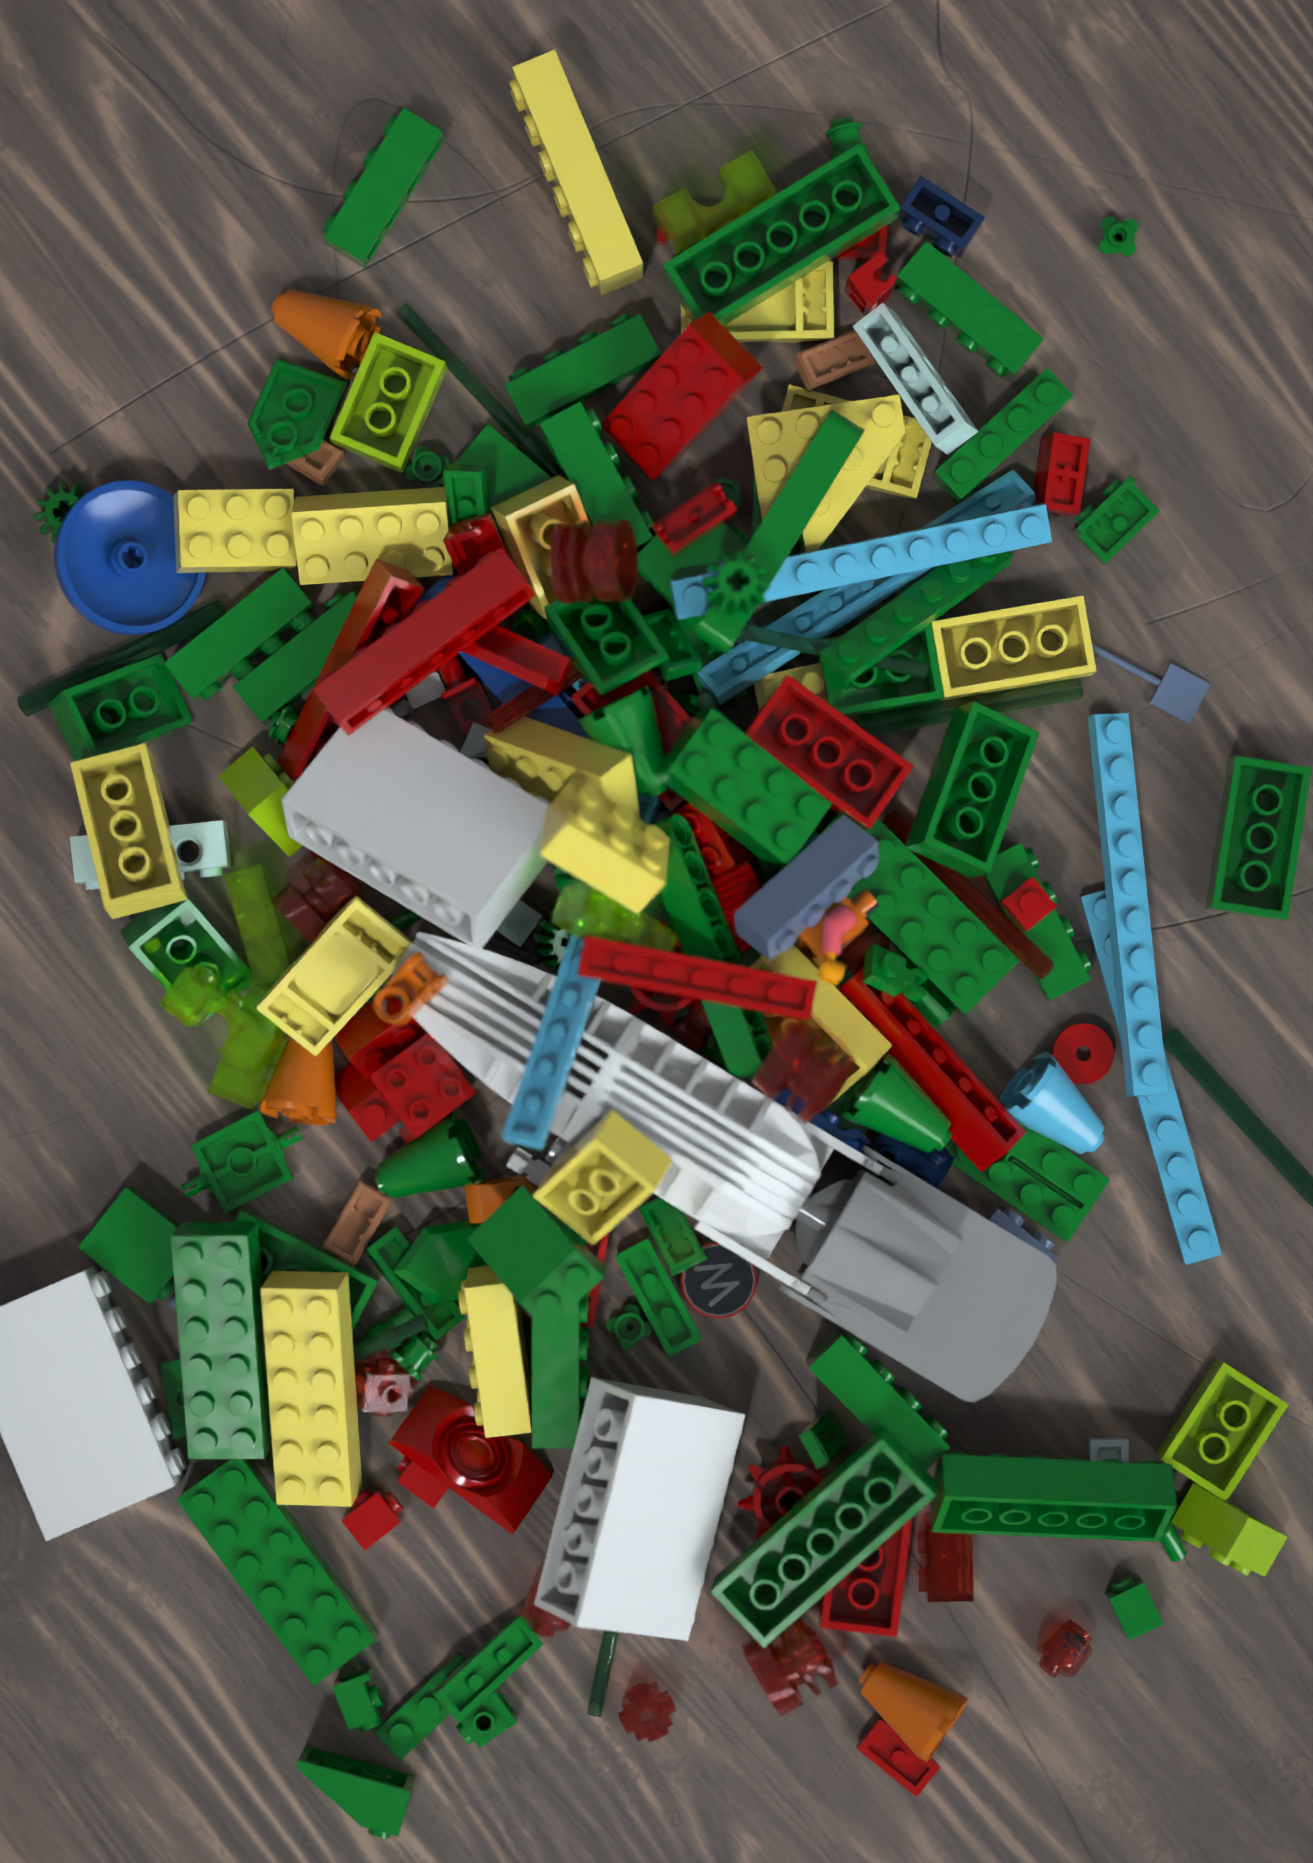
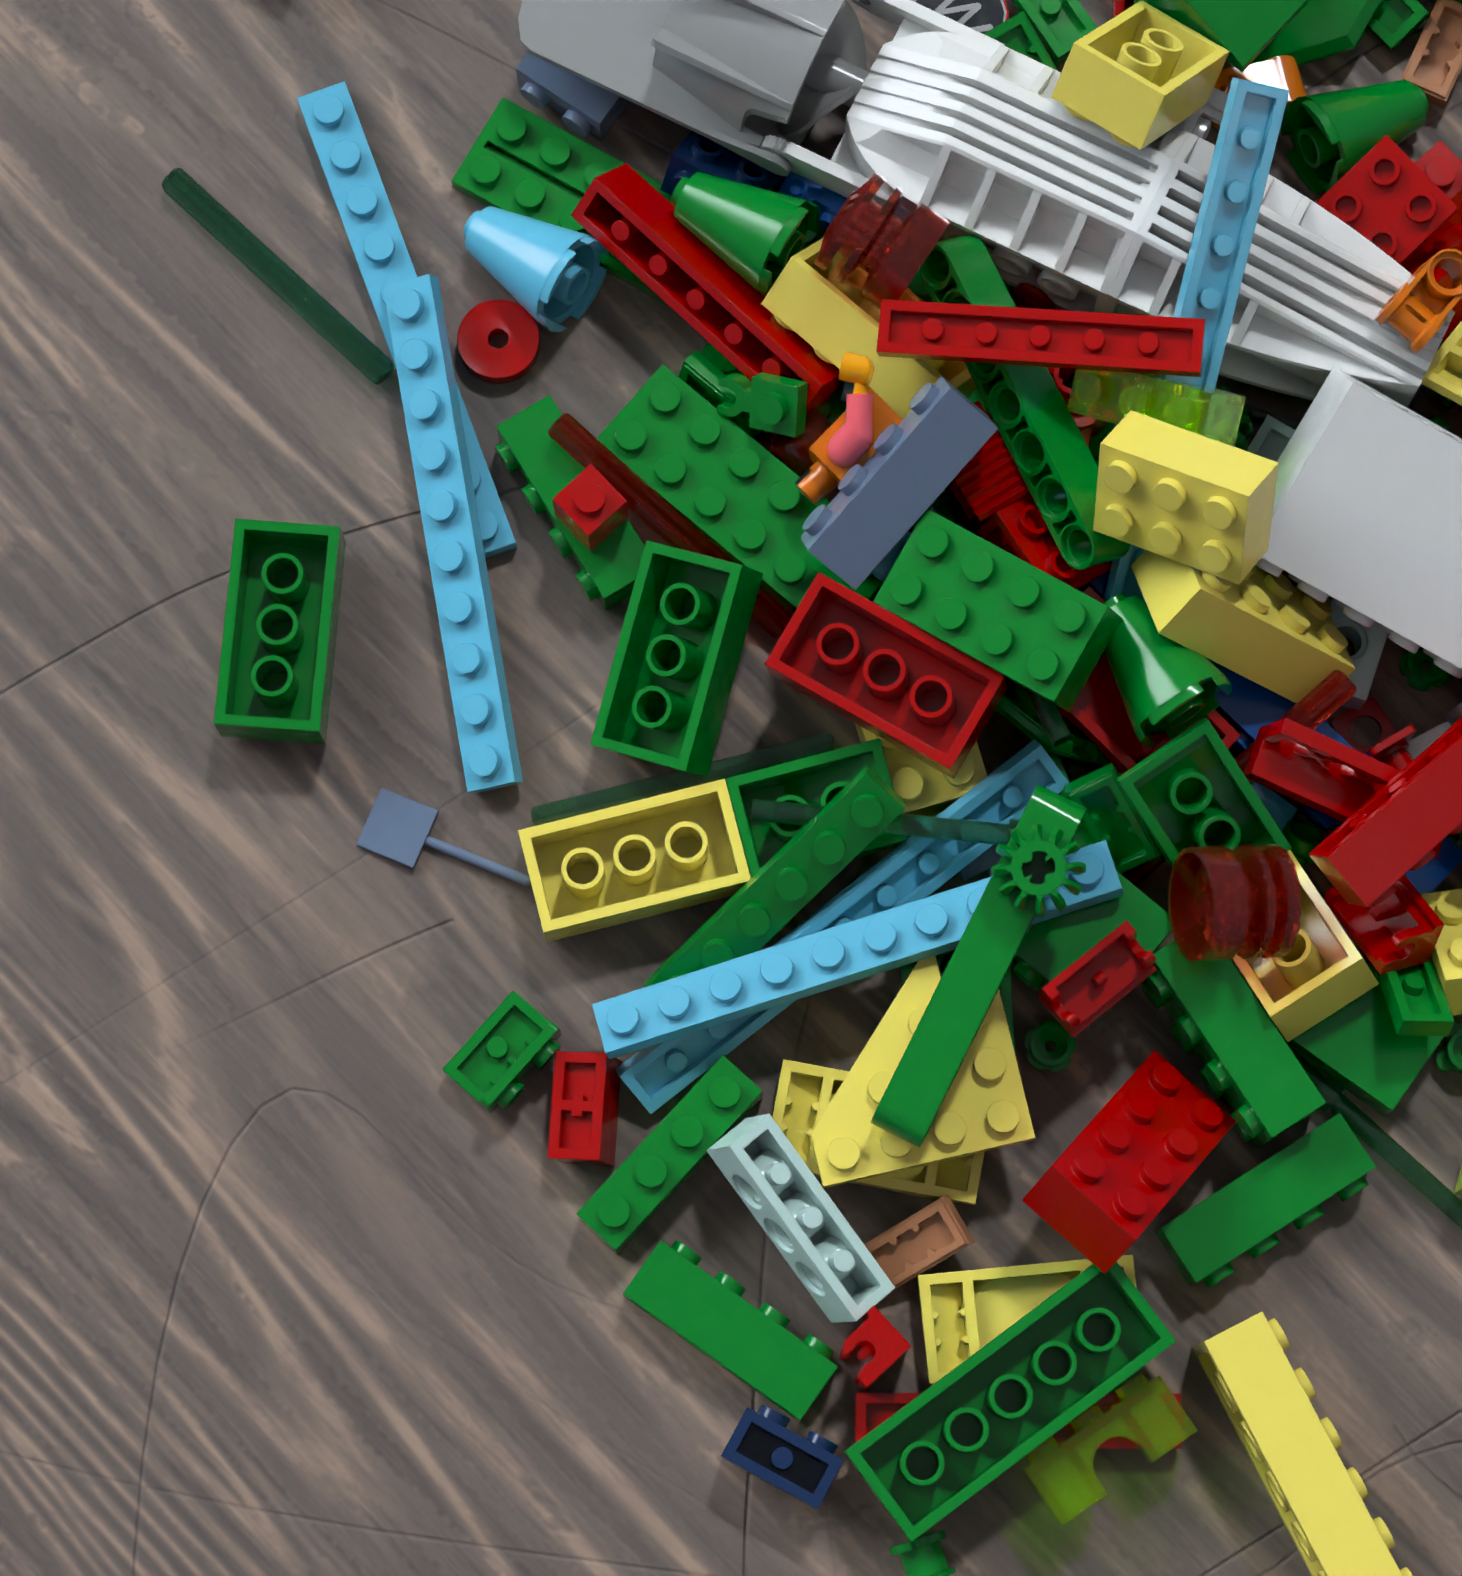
camera: 175 degrees right, 10 degrees down
(1110, 244) = (536, 1468): green plate -> none

